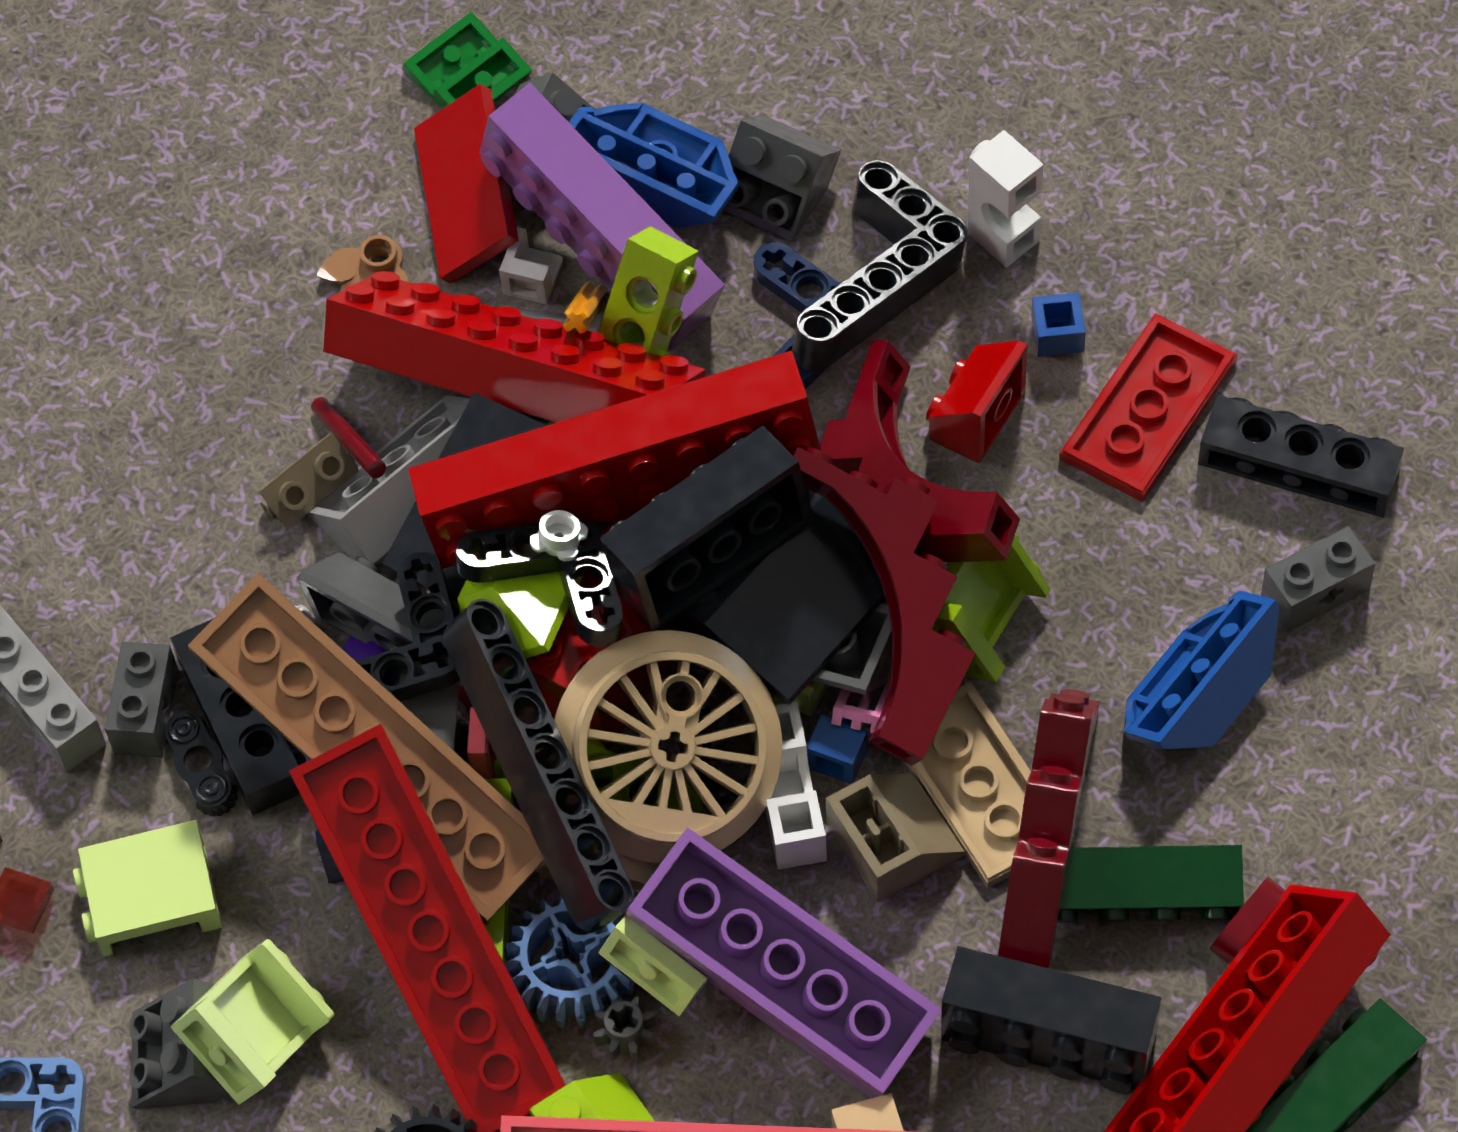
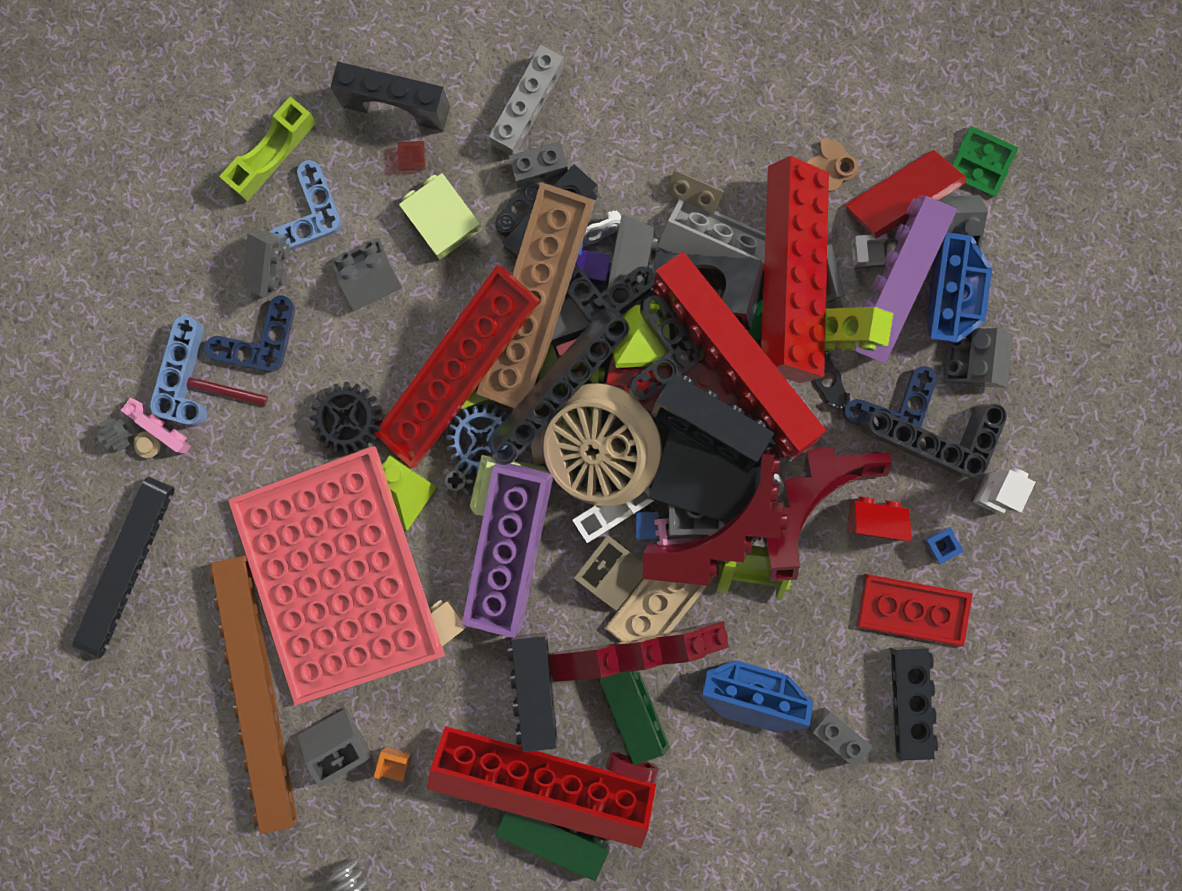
camera: 65 degrees right, 25 degrees up
(252, 1020) = (382, 300): yellowish green panel -> none
(348, 437) = (725, 201): dark red bar -> none
(559, 535) = (684, 340): white plate -> none
(584, 307) = (843, 293): light orange axle -> none

